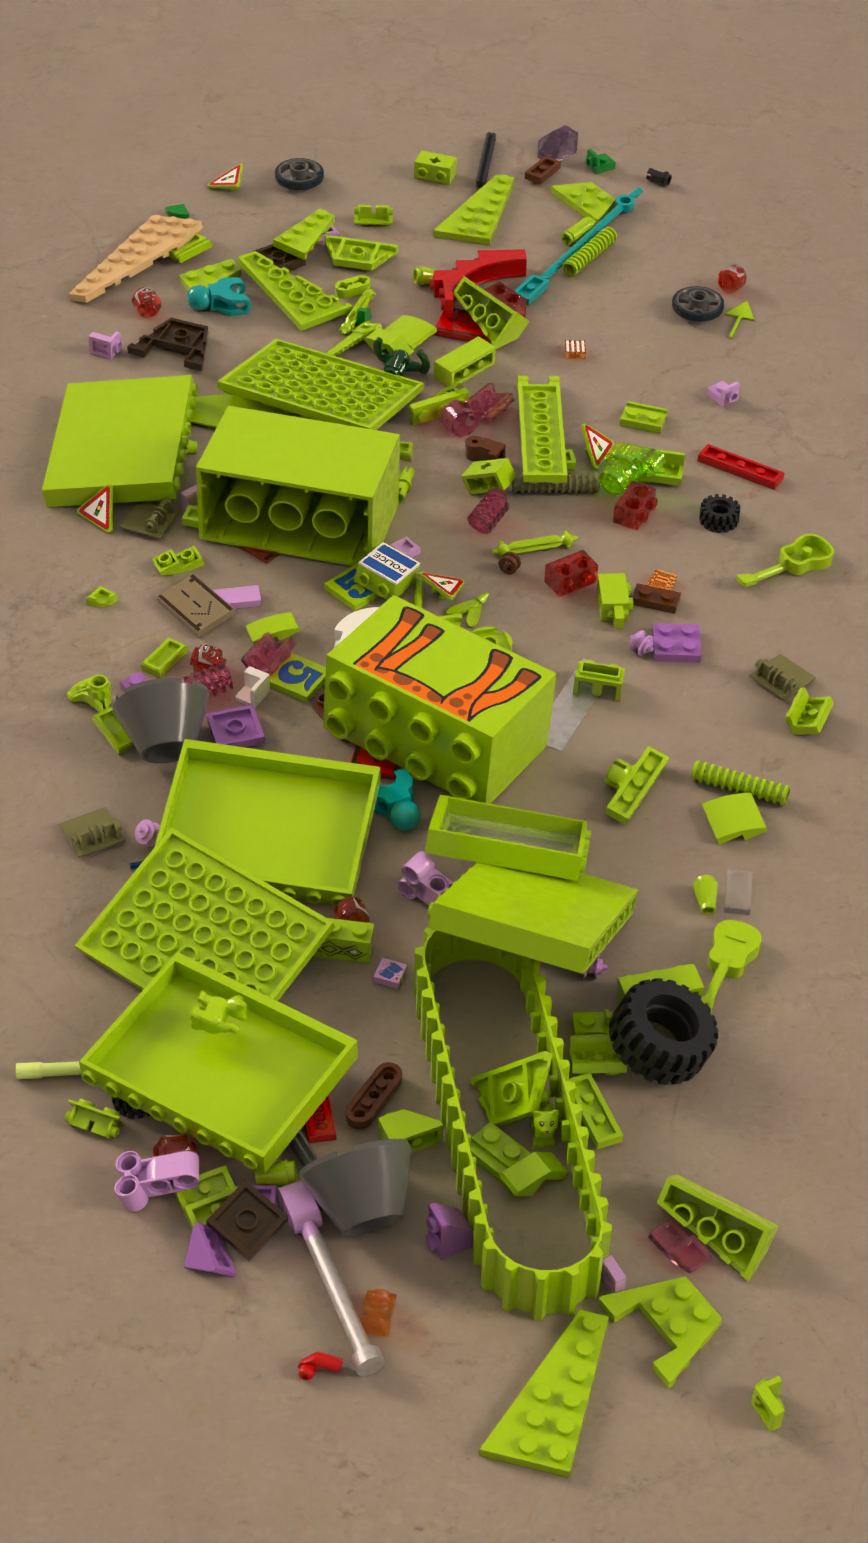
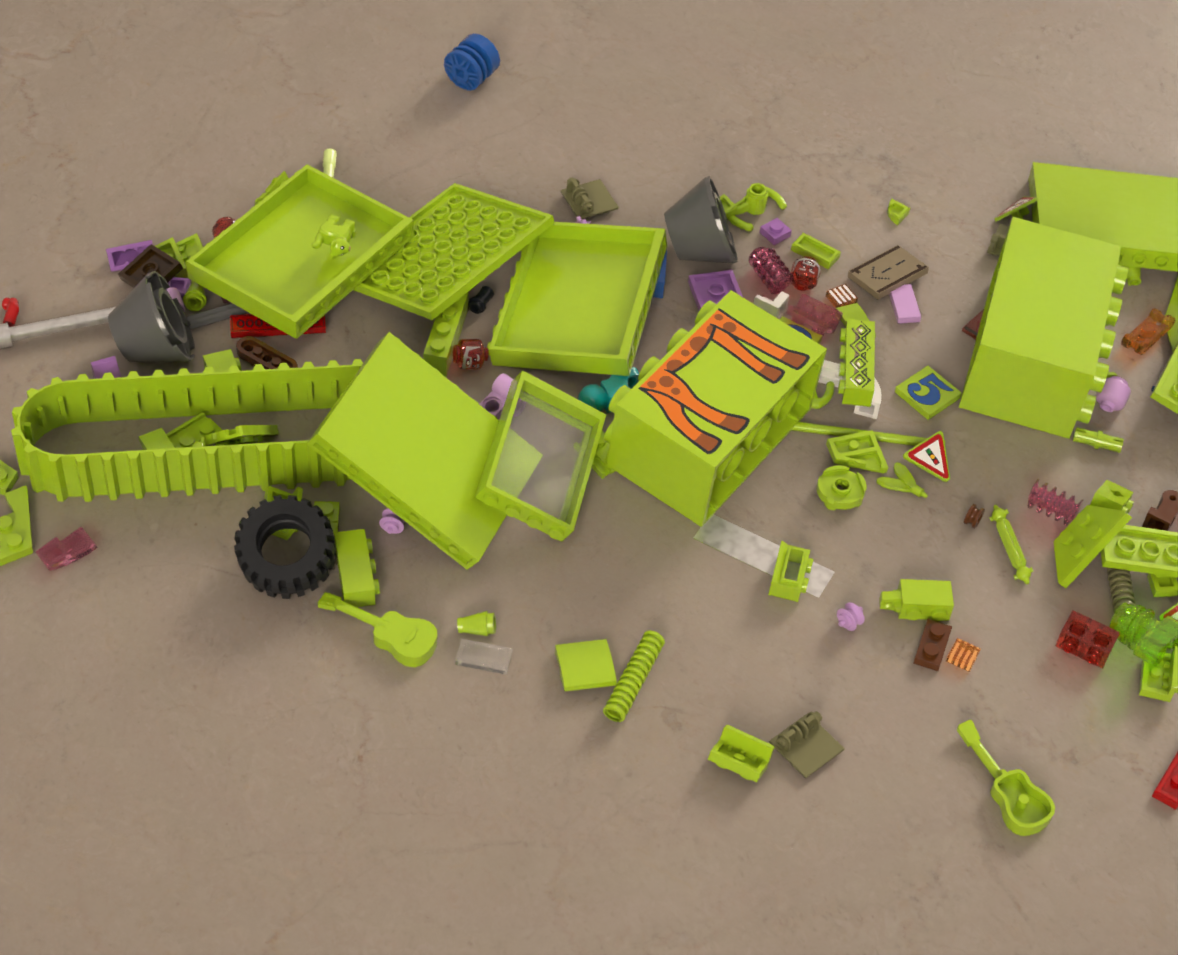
camera: 90 degrees right, 5 degrees up
(154, 1176) = (201, 215): lavender piece -> none
(172, 564) = (951, 262): lime slope -> none
(231, 640) = (841, 296): none -> clear orange tile
(337, 611) = (858, 362): none -> lime brick
(378, 1311) = (51, 345): clear orange bracket -> none
(387, 571) = (939, 406): piece -> none
(406, 450) = (1161, 447): lime tile -> none
(407, 547) = (993, 435): lavender tile -> none
(538, 489) = (1085, 540): none -> lime wing
(571, 573) = (961, 566): clear red brick -> none
(596, 1113) = (222, 504): lime plate -> none
(613, 1275) = (42, 494): lavender tile -> none
(632, 783) = (635, 582): lime plate -> none
(676, 642) = (860, 654): medium lavender plate -> none
(710, 514) = (1089, 711): black tyre -> none
(721, 1224) = (80, 573): lime wedge -> none

